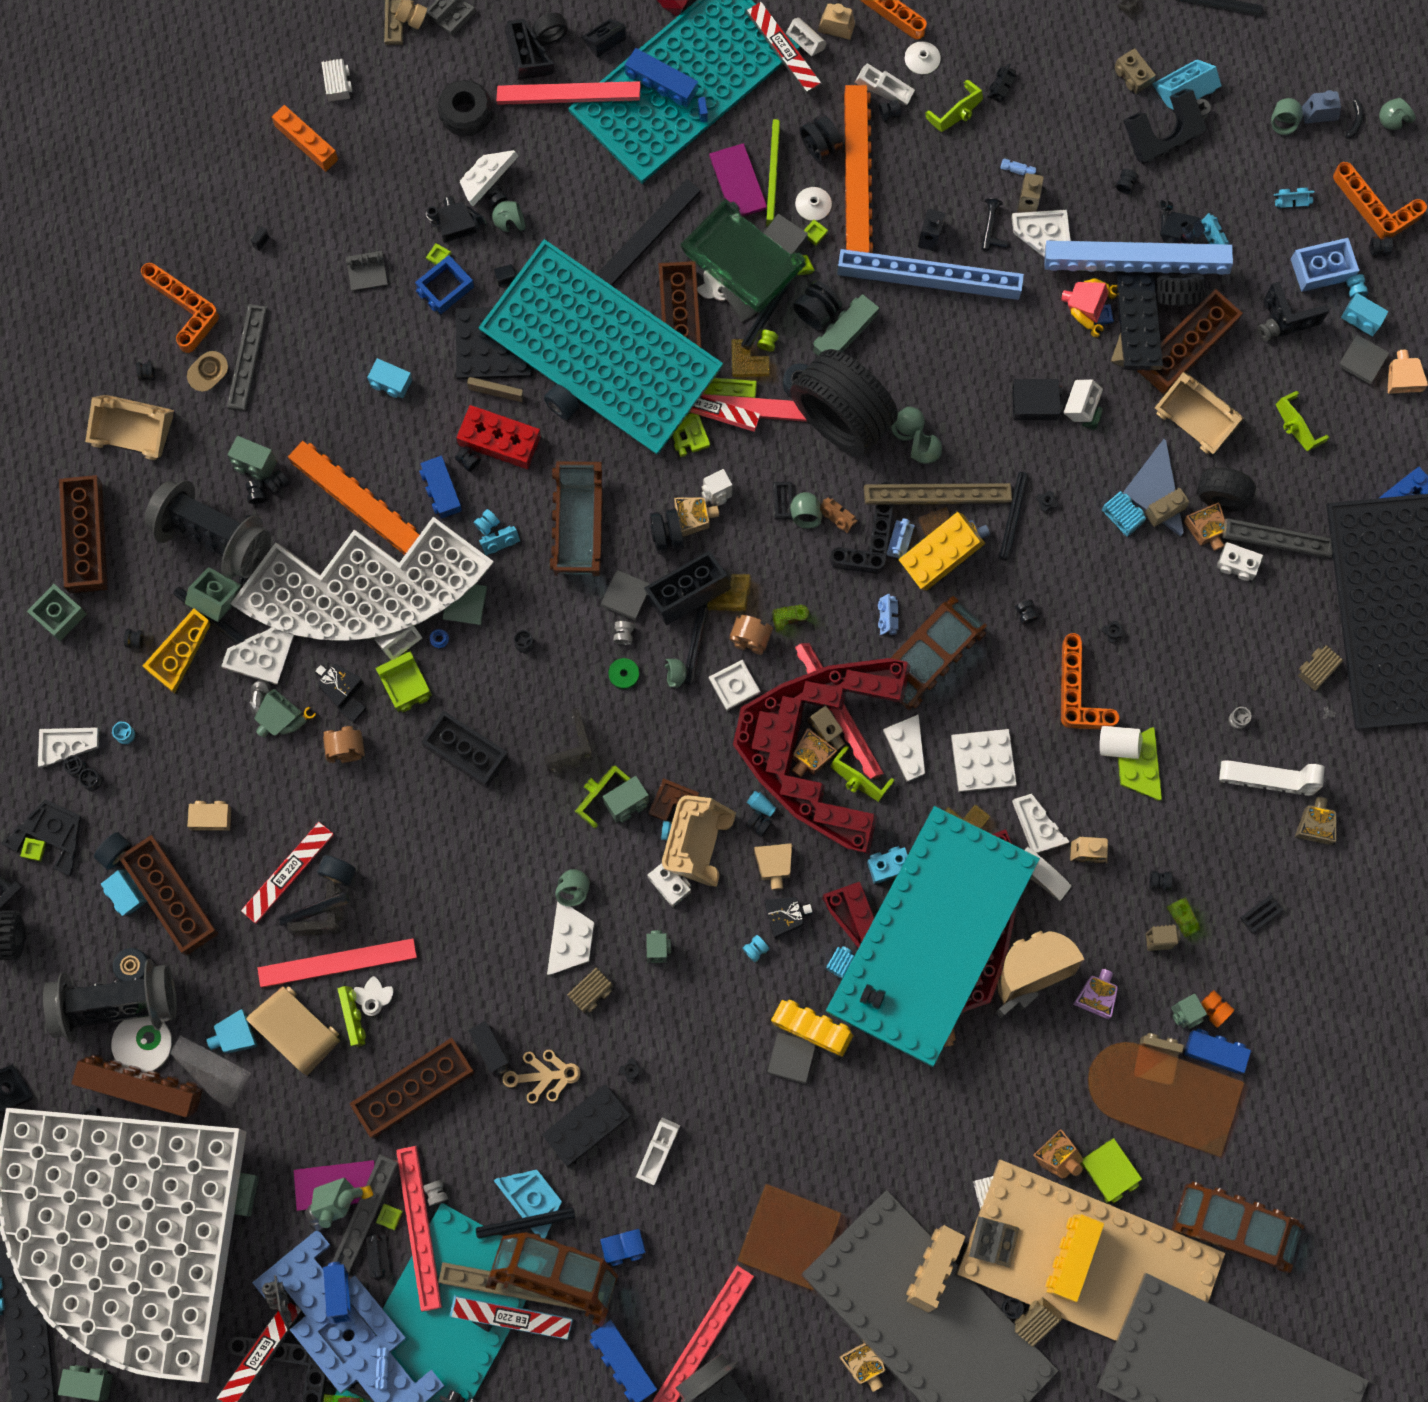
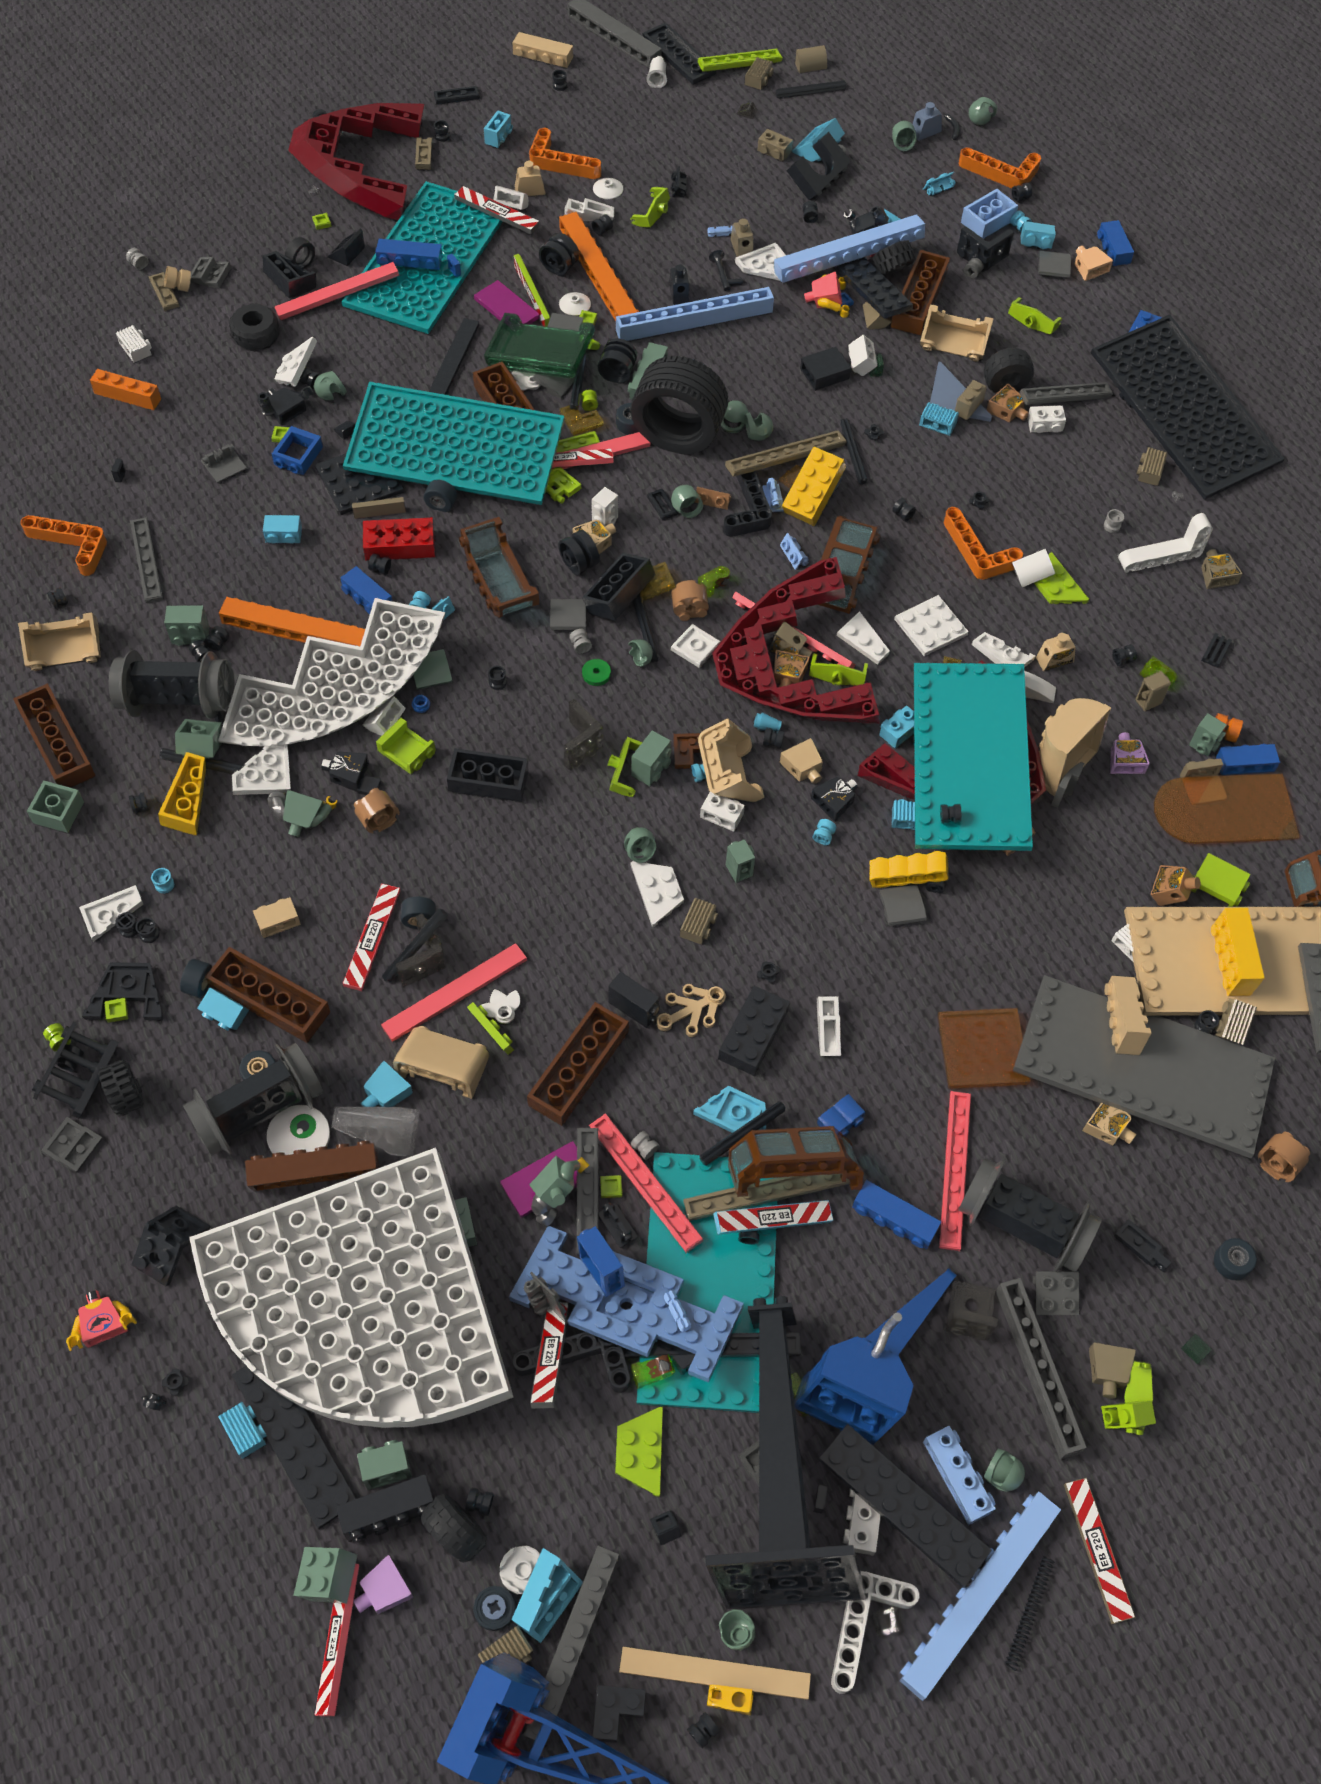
camera: 25 degrees left, 15 degrees down
(207, 371) = (115, 576): tan piece -> none
(994, 1242) = (1162, 971): dark grey slope -> none

